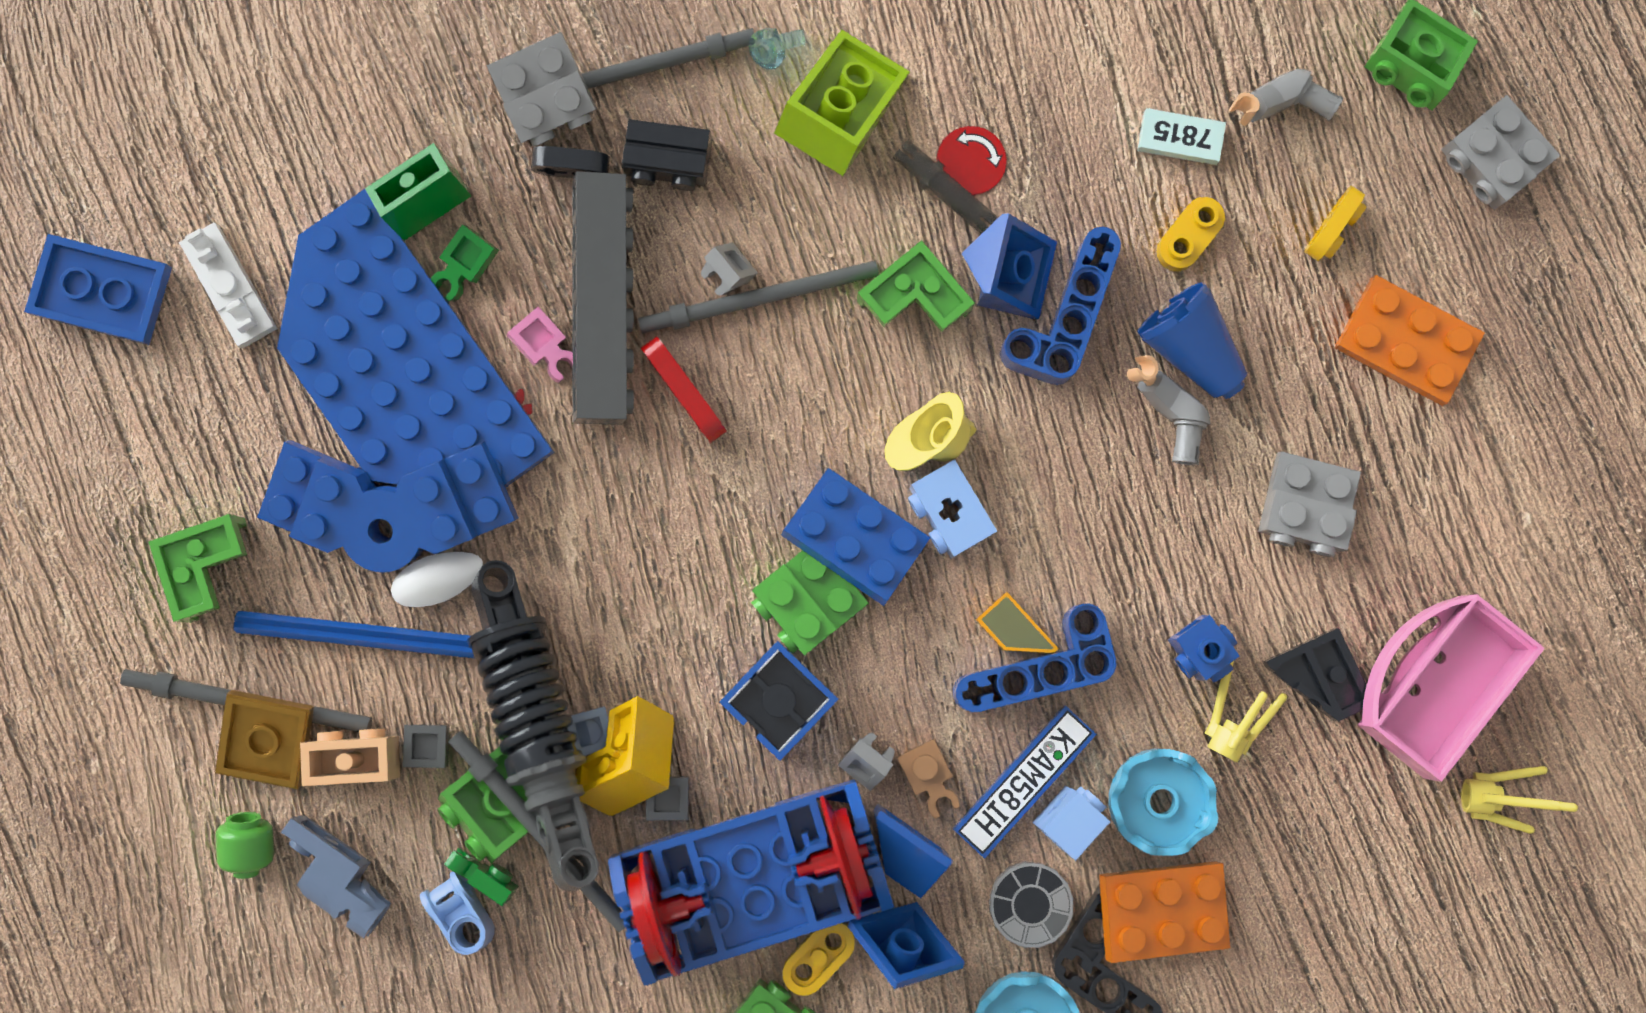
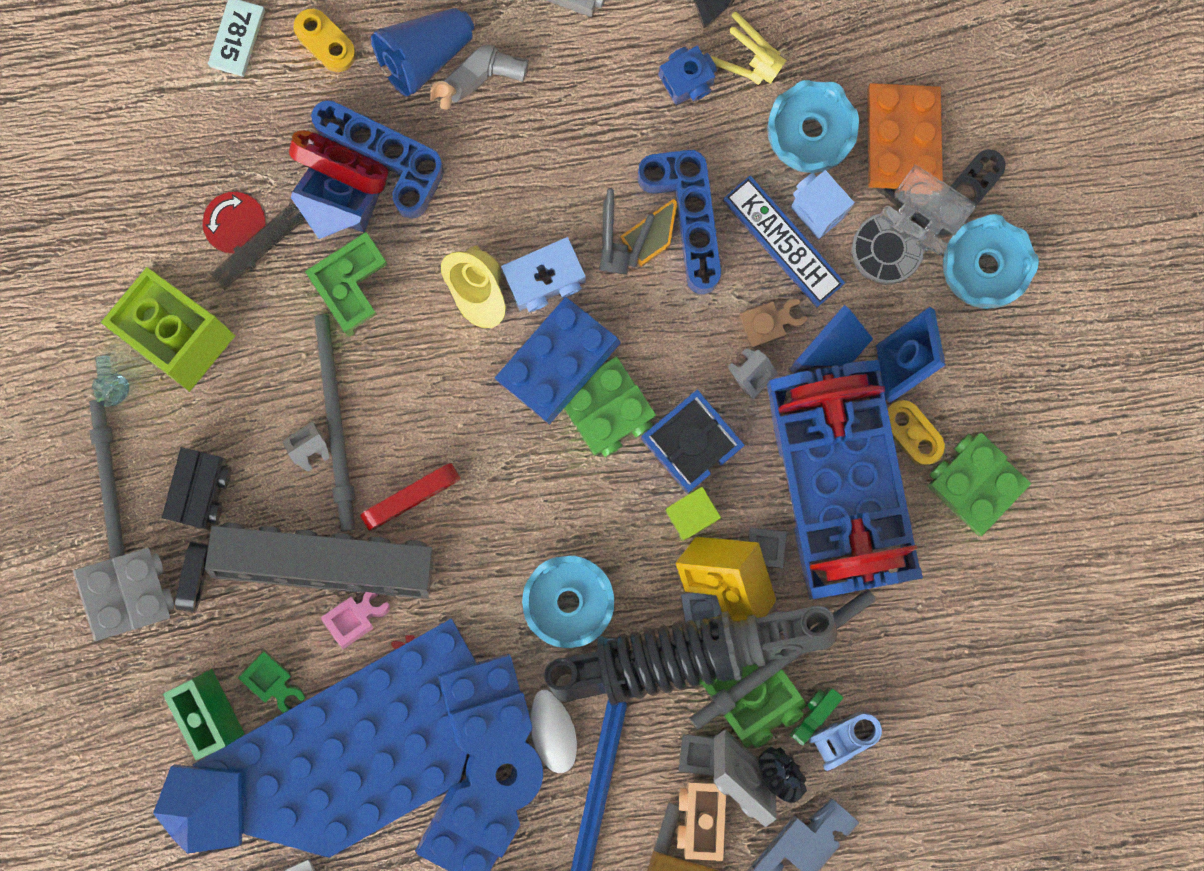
camera: 85 degrees left, 0 degrees up
(315, 202) = (201, 808): none -> blue slope
(397, 801) = (740, 777): none -> light grey plate
(418, 835) = (782, 774): none -> black gear
(553, 574) = (542, 596): none -> medium azure plate
(695, 709) = (692, 513): none -> lime panel
(982, 588) = (615, 256): none -> dark grey plant
(1042, 288) = (354, 170): none -> red beam
(1092, 953) = (933, 200): none -> clear plate

